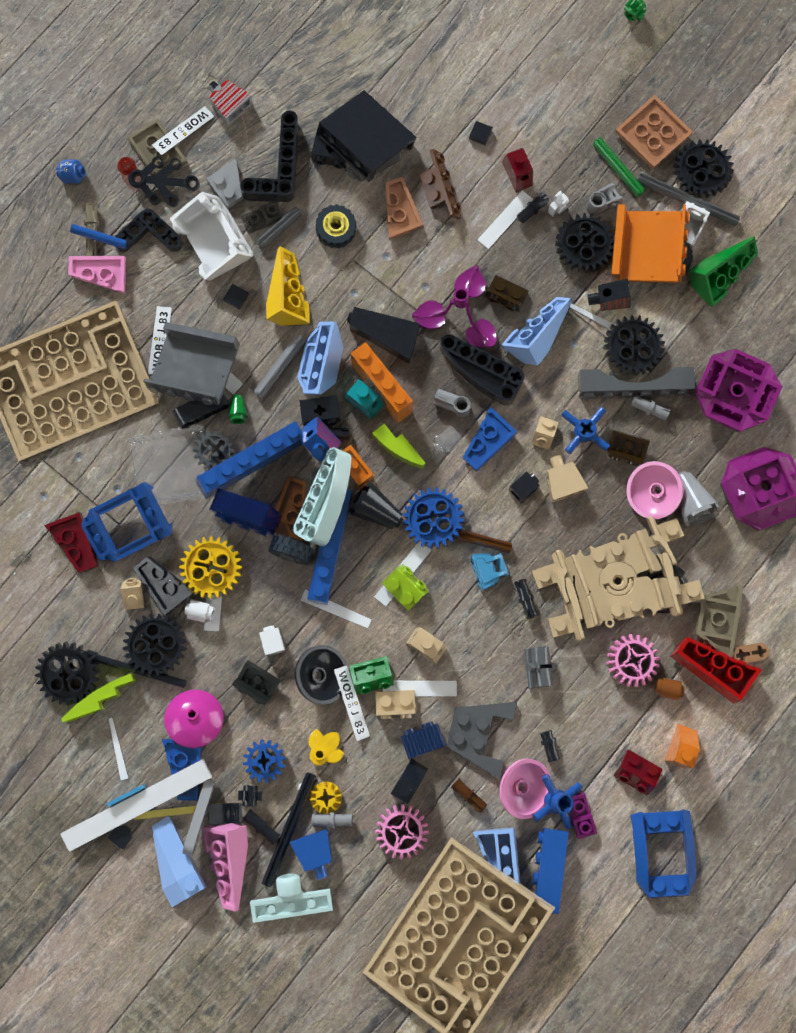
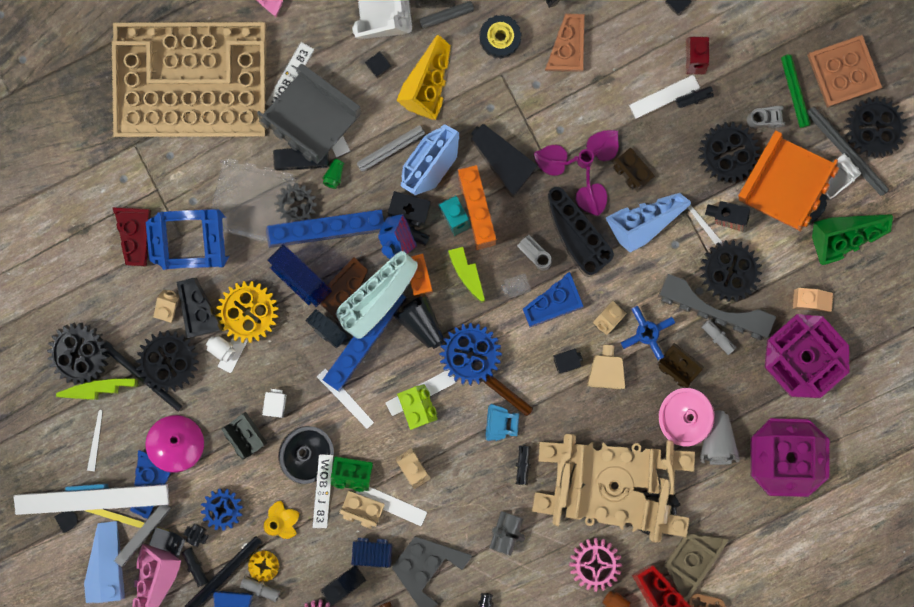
camera: 25 degrees right, 5 degrees up
(438, 186) = (614, 38): reddish brown bracket -> none
(558, 204) = (720, 105): white plate -> none
(717, 340) = (812, 300): none -> light nougat slope

